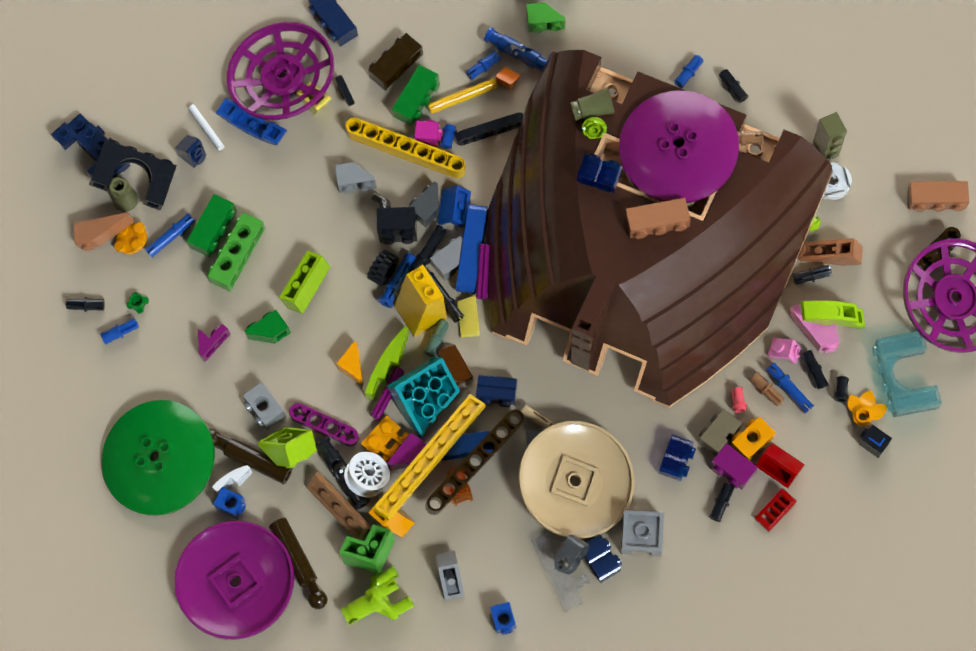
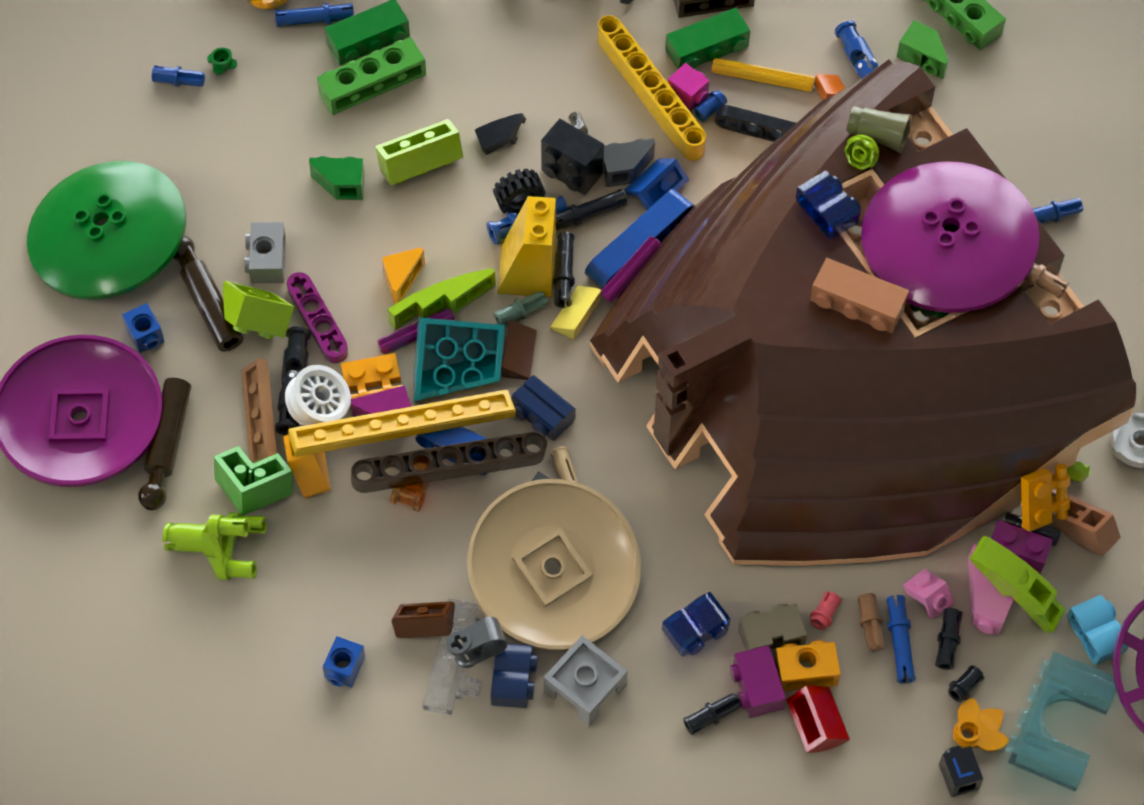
camera: 30 degrees right, 10 degrees down
(85, 304) = (165, 26): black axle -> none
(208, 345) = (260, 152): magenta slope -> none
(237, 476) = (177, 306): white slope -> none
(339, 237) = (499, 132): none -> black slope
(353, 177) = (565, 81): light grey slope -> none
(447, 260) = (601, 229): light grey slope -> none
(449, 575) = (321, 572): light grey slope -> none
(483, 65) = (812, 57): blue pin -> none
(527, 561) = (423, 619): none -> reddish brown slope
(733, 85) = (1098, 260): black axle -> none
(791, 503) = (774, 777): red slope -> none
(812, 253) = (1038, 499): none -> light orange plate
(815, 290) = (1025, 544): none -> magenta brick
(887, 308) = (1096, 628): none -> medium azure brick

